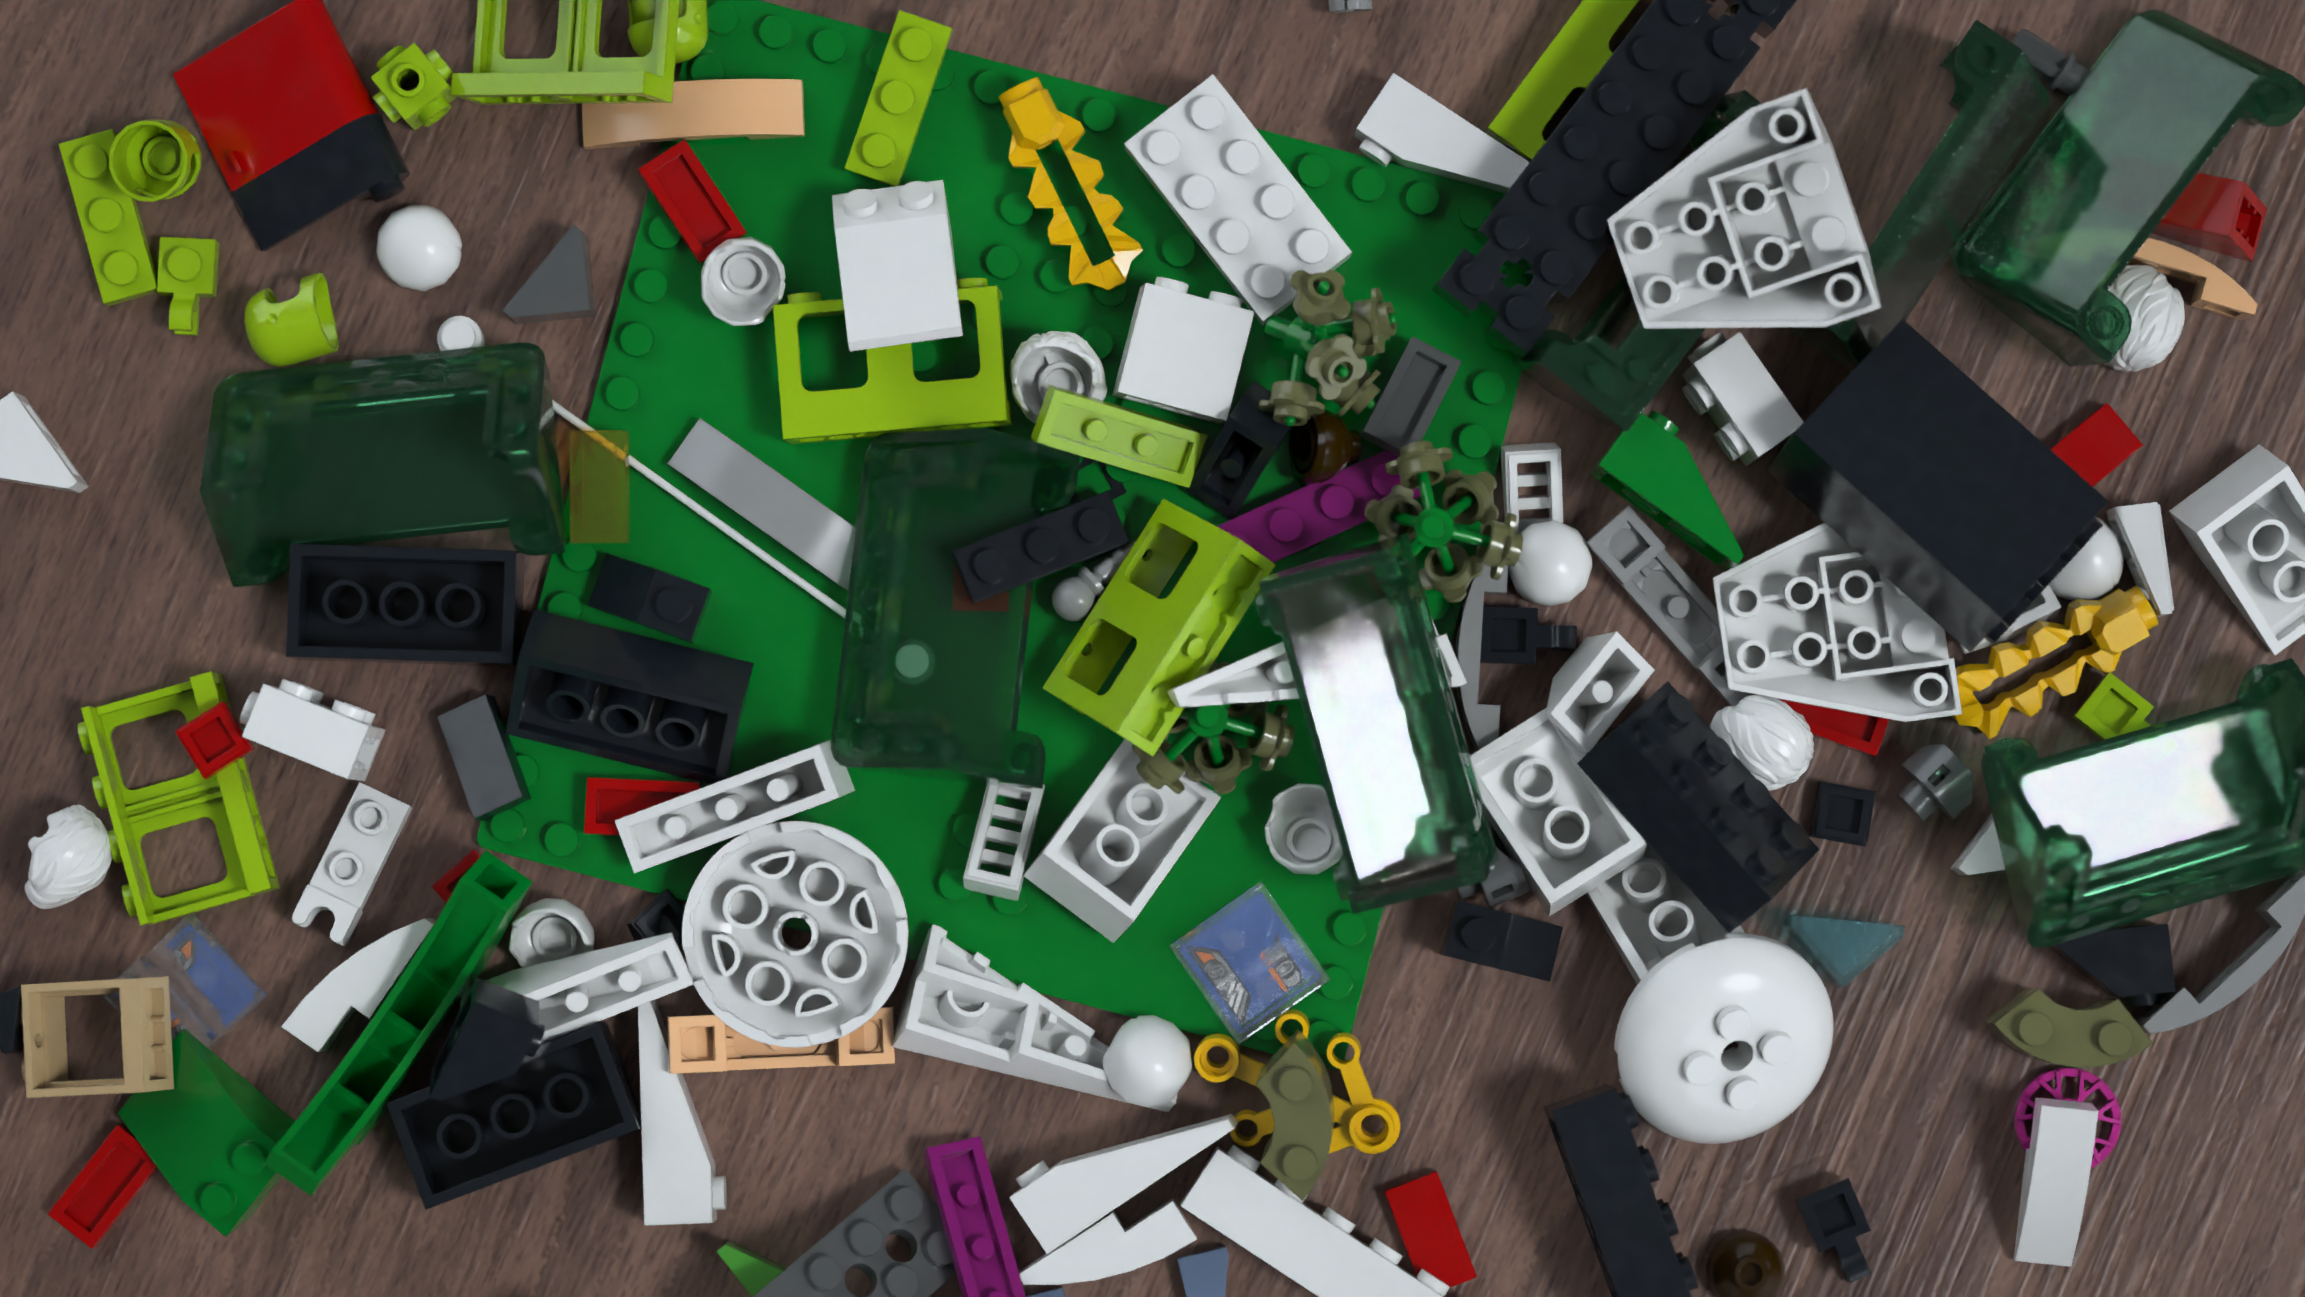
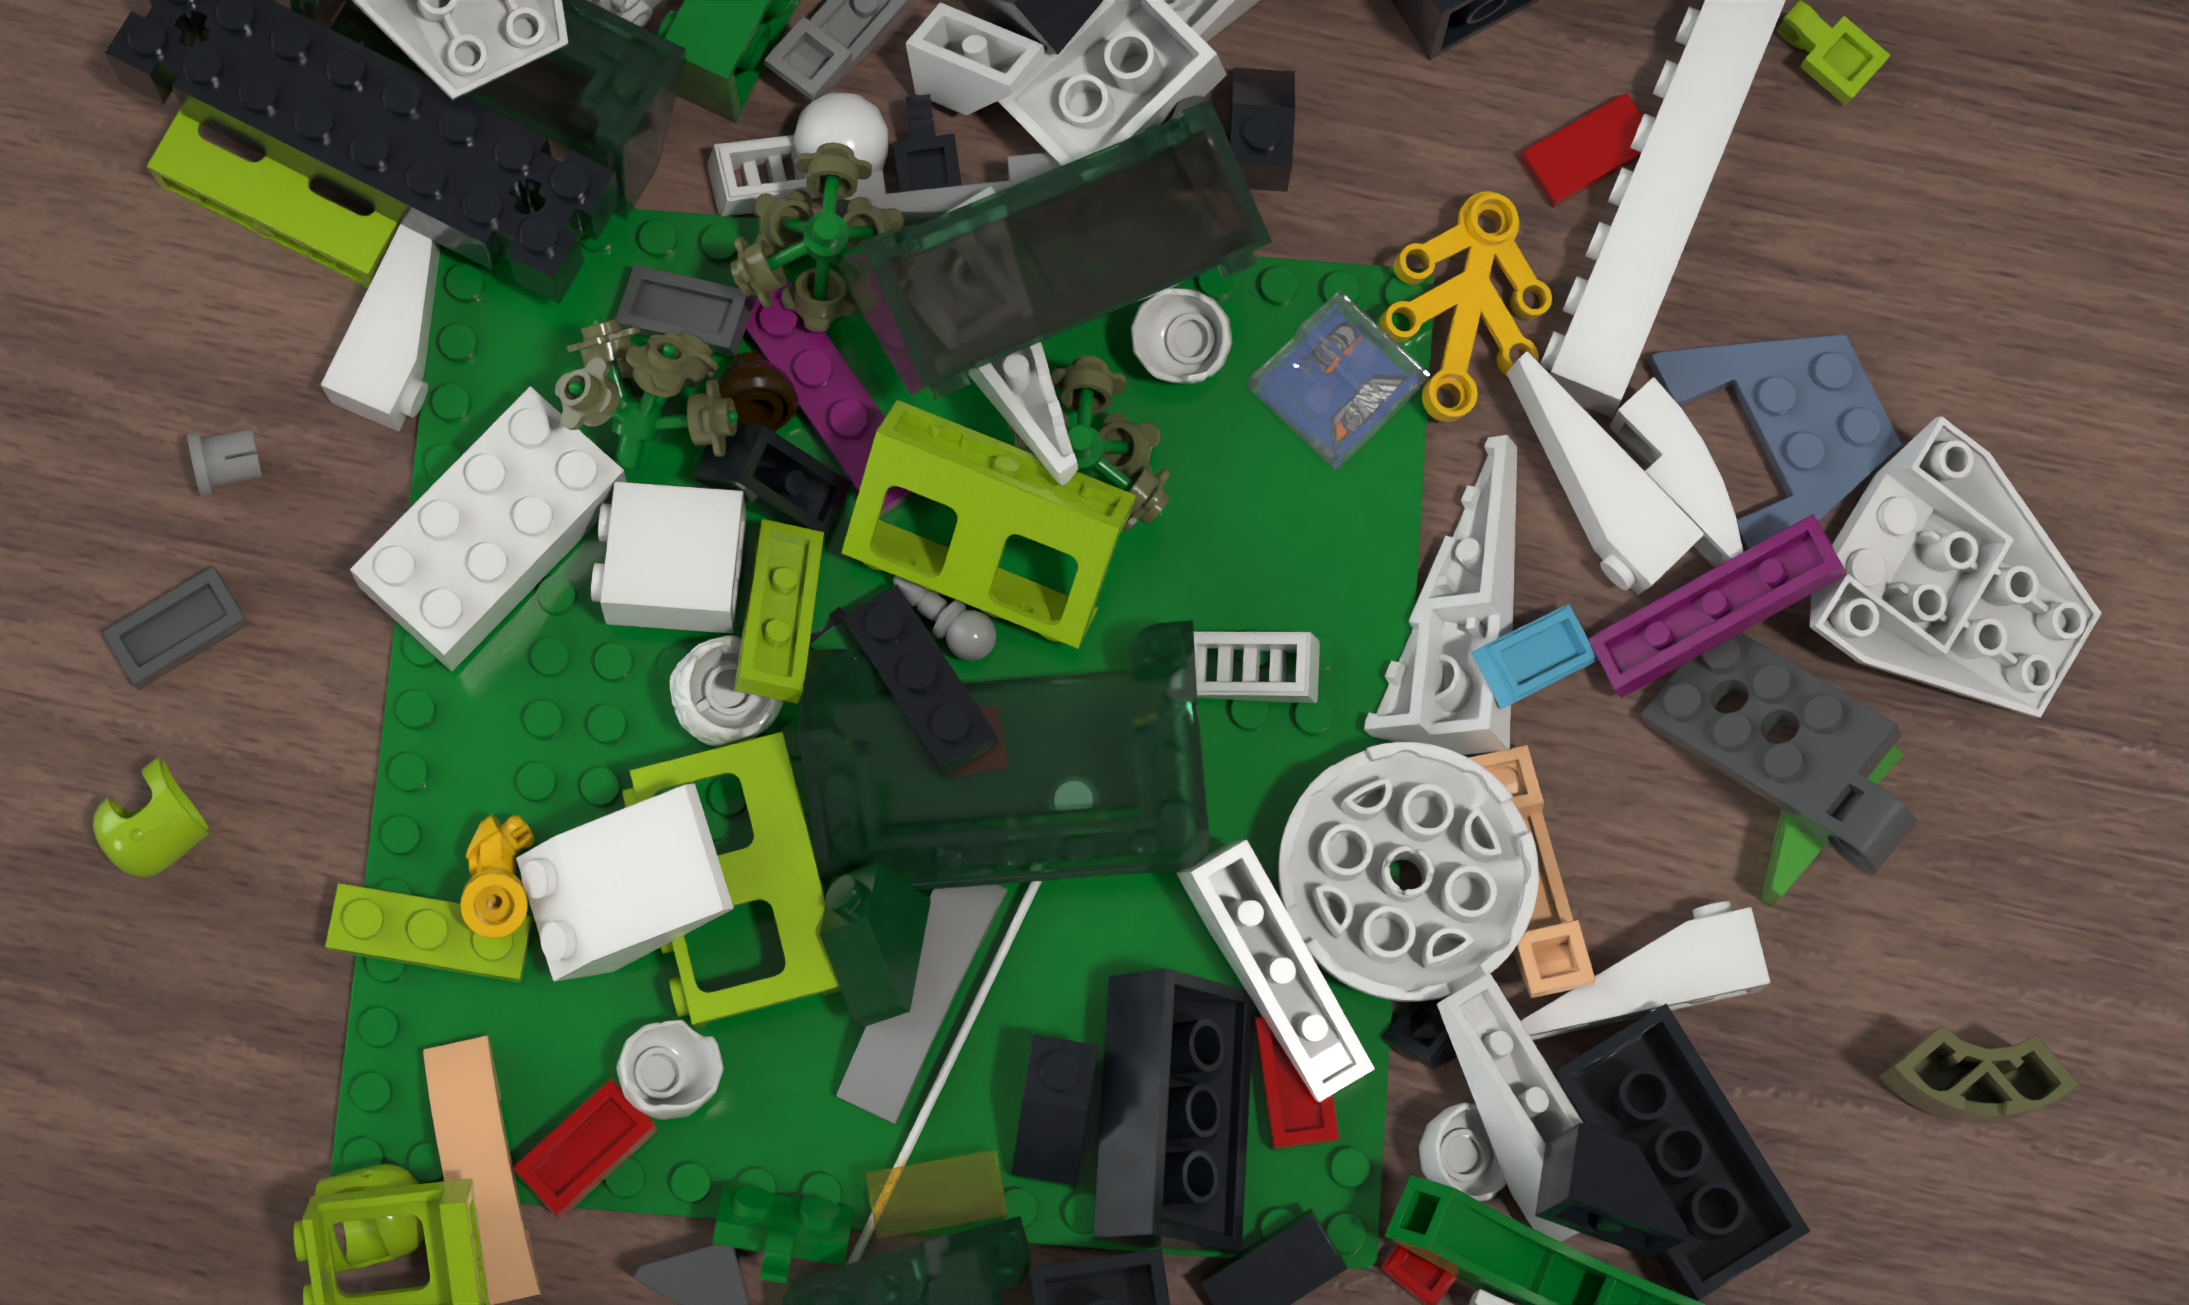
camera: 105 degrees left, 10 degrees down
(591, 354) = (782, 1228): none -> green plate
(813, 469) = (874, 941): none -> dark green slope
(910, 156) = (494, 896): none -> yellow arm
(968, 1084) = (1534, 656): none -> medium azure tile
(1037, 125) = (436, 768): yellow sword -> none
(1119, 844) = (1236, 538): white slope -> none
(1148, 1061) = (1467, 468): white hair -> none
(1302, 1113) = (1500, 285): olive brick -> none

